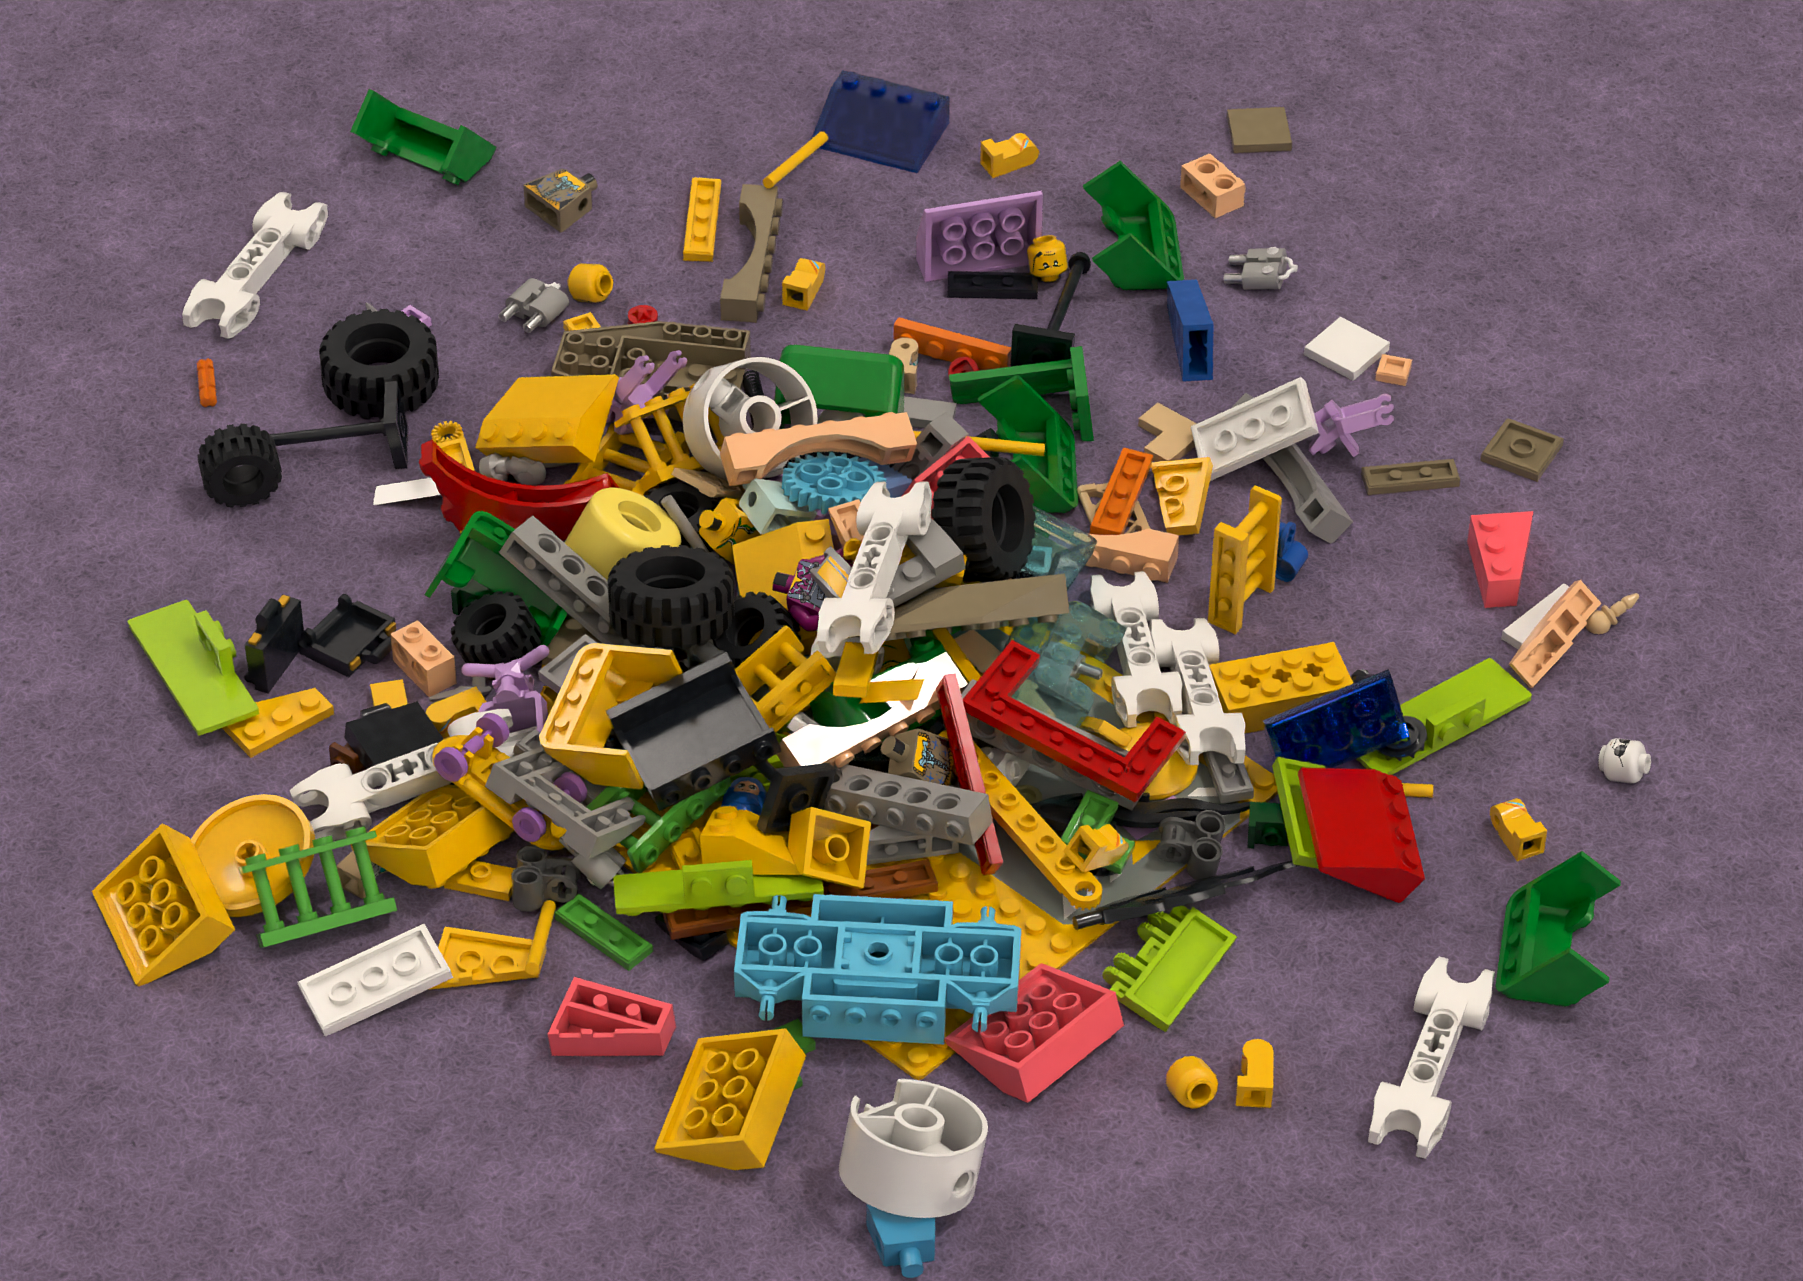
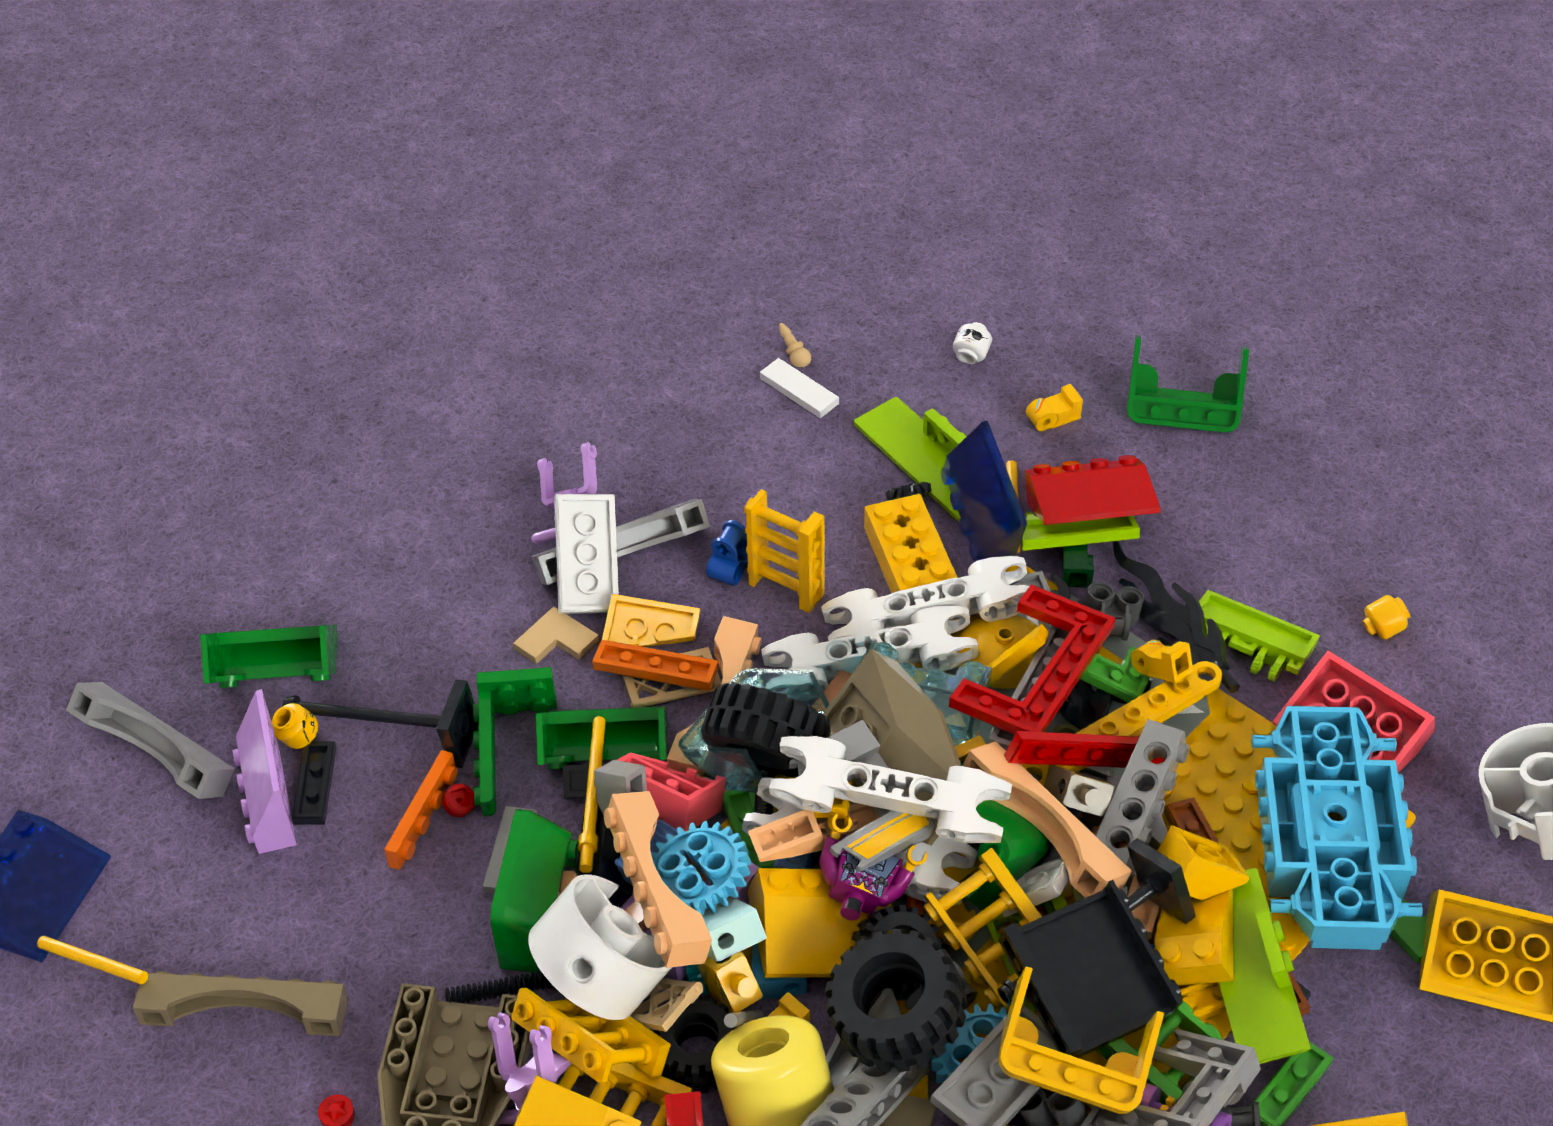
camera: 90 degrees left, 5 degrees up
(610, 1023) = (1429, 1062): coral wedge -> none
(702, 219) = (163, 1062): yellow tile -> none
(804, 279) = (299, 950): yellow leg -> none
(854, 671) = (1017, 831): yellow tile -> none
(893, 690) = (1014, 810): yellow sticker -> none
(907, 351) = (444, 854): tan leg -> none
(1007, 154) = (106, 768): yellow leg -> none
(1068, 143) = (188, 762): none -> light grey arch
(1191, 329) = (411, 611): blue slope -> none
(1212, 185) = (189, 597): light nougat brick -> none
(1256, 1085) = (1363, 575): yellow leg -> none
(1259, 130) = (98, 566): dark tan tile -> none
(1262, 268) = (322, 560): light grey piece -> none
(1346, 348) = (439, 507): white tile -> none
(1393, 370) = (471, 475): light nougat tile -> none
(1410, 477) = (618, 467): dark tan tile -> none
(1415, 1102) = (1371, 480): white piece -> none
(1498, 554) = (735, 405): coral wedge -> none
(1522, 449) = (583, 394): dark tan tile -> none
(1554, 633) = (835, 379): light nougat slope -> none

